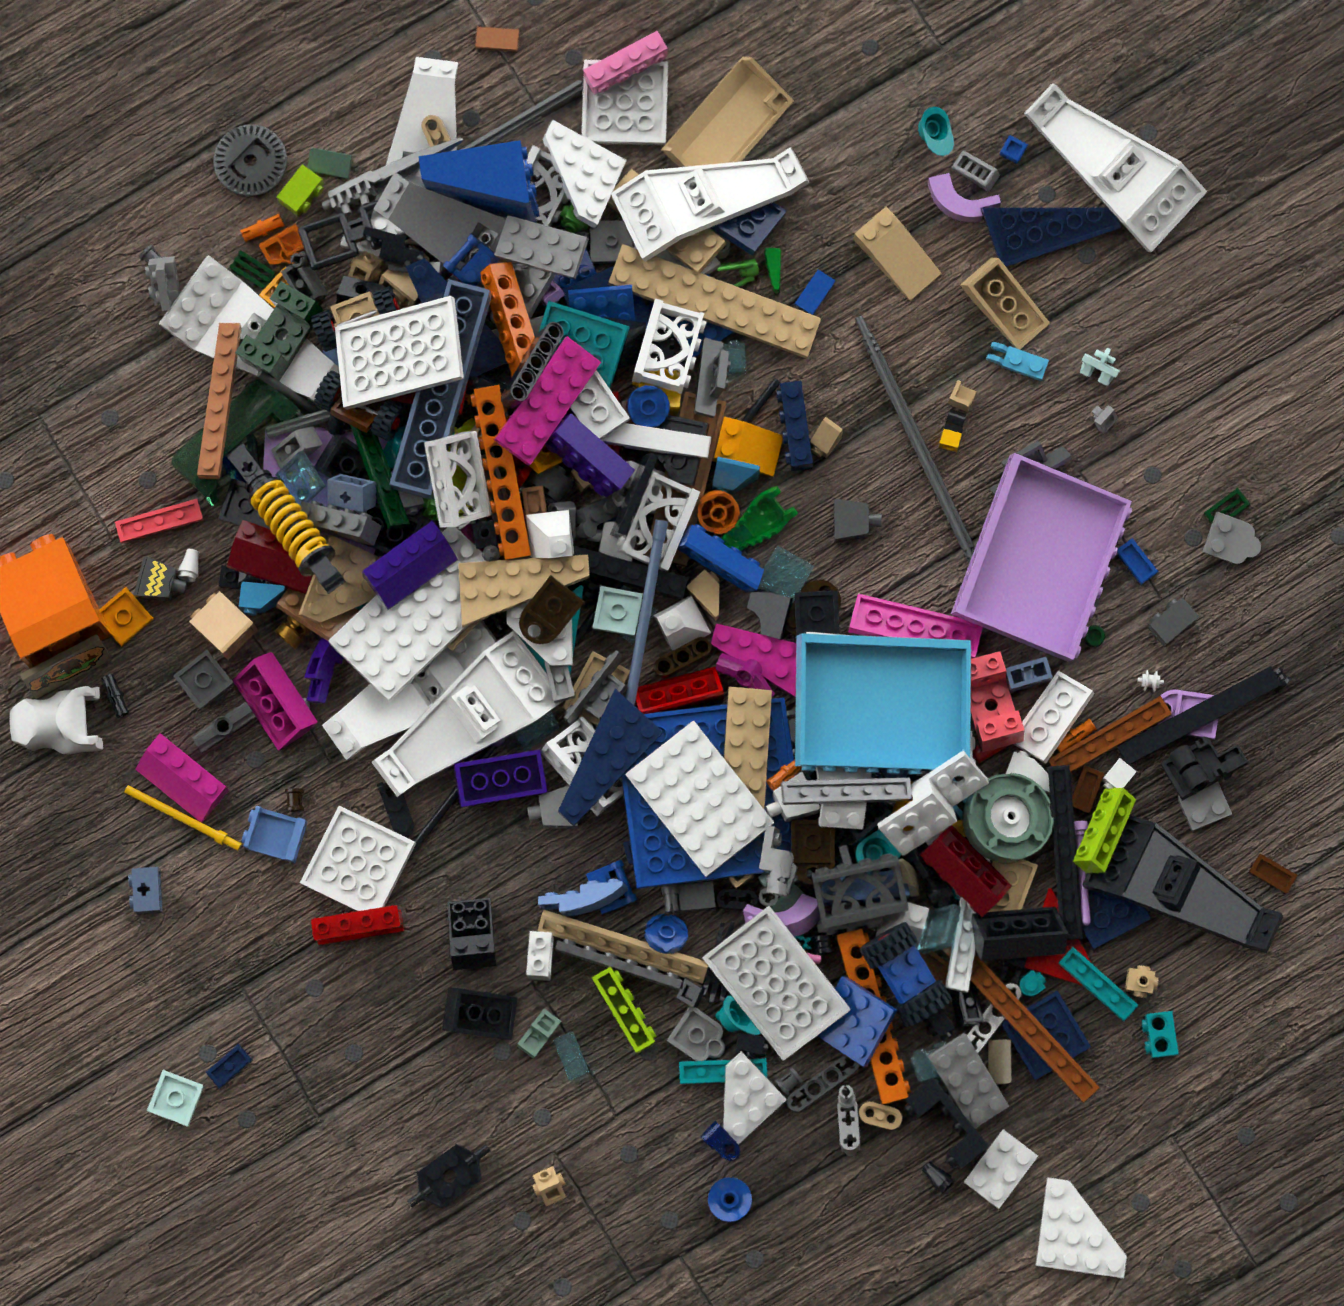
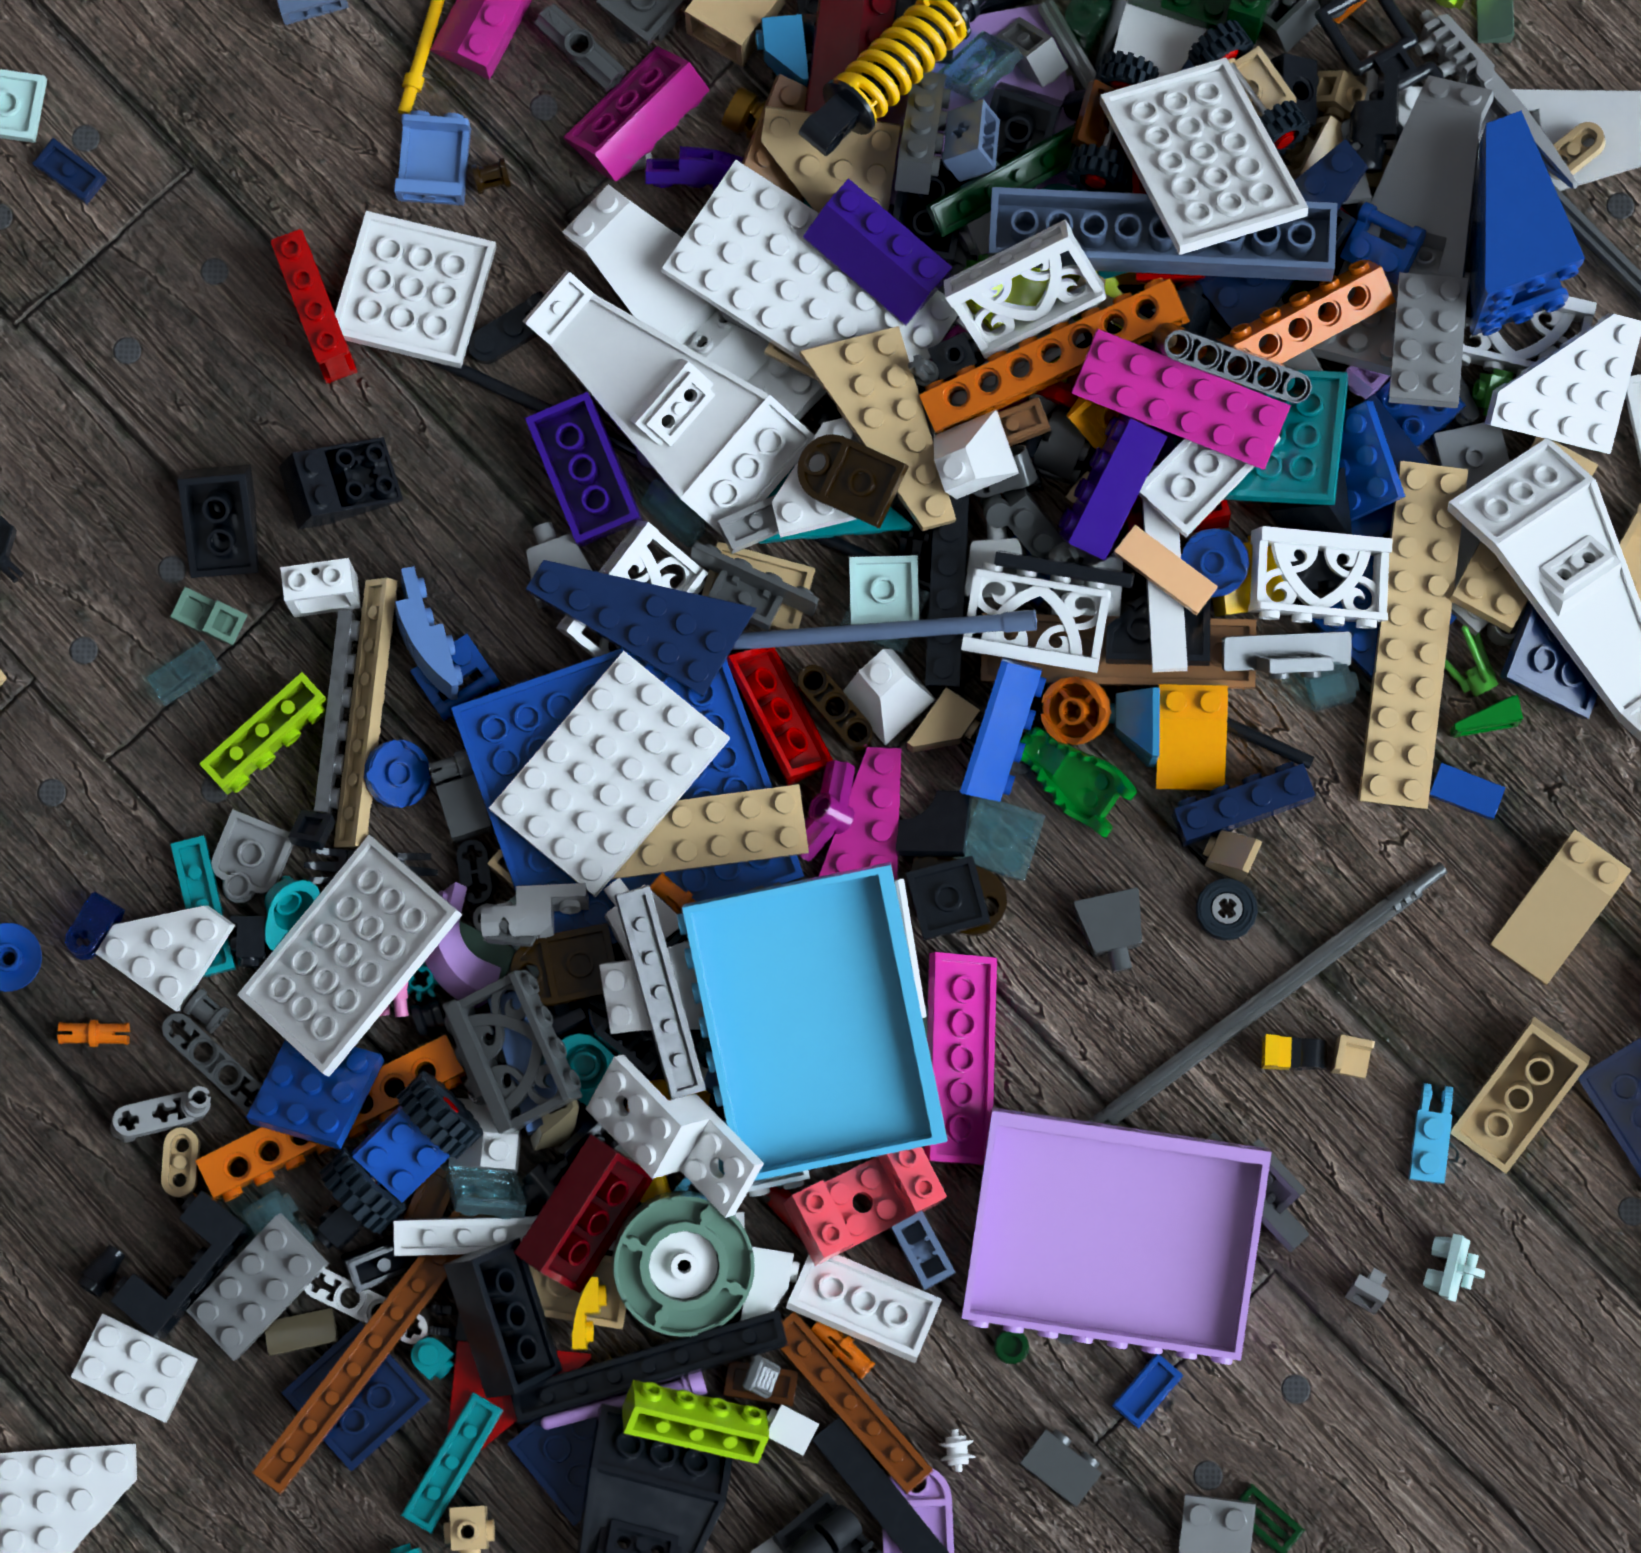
camera: 75 degrees right, 0 degrees up
(647, 435) = (1165, 570): none -> light nougat tile
(788, 1155) = (93, 1033): none -> orange pin
(859, 440) = (1244, 910): none -> black bush
(1019, 879) = (590, 1303): none -> yellow slope
(1084, 787) = (761, 1377): none -> dark grey slope

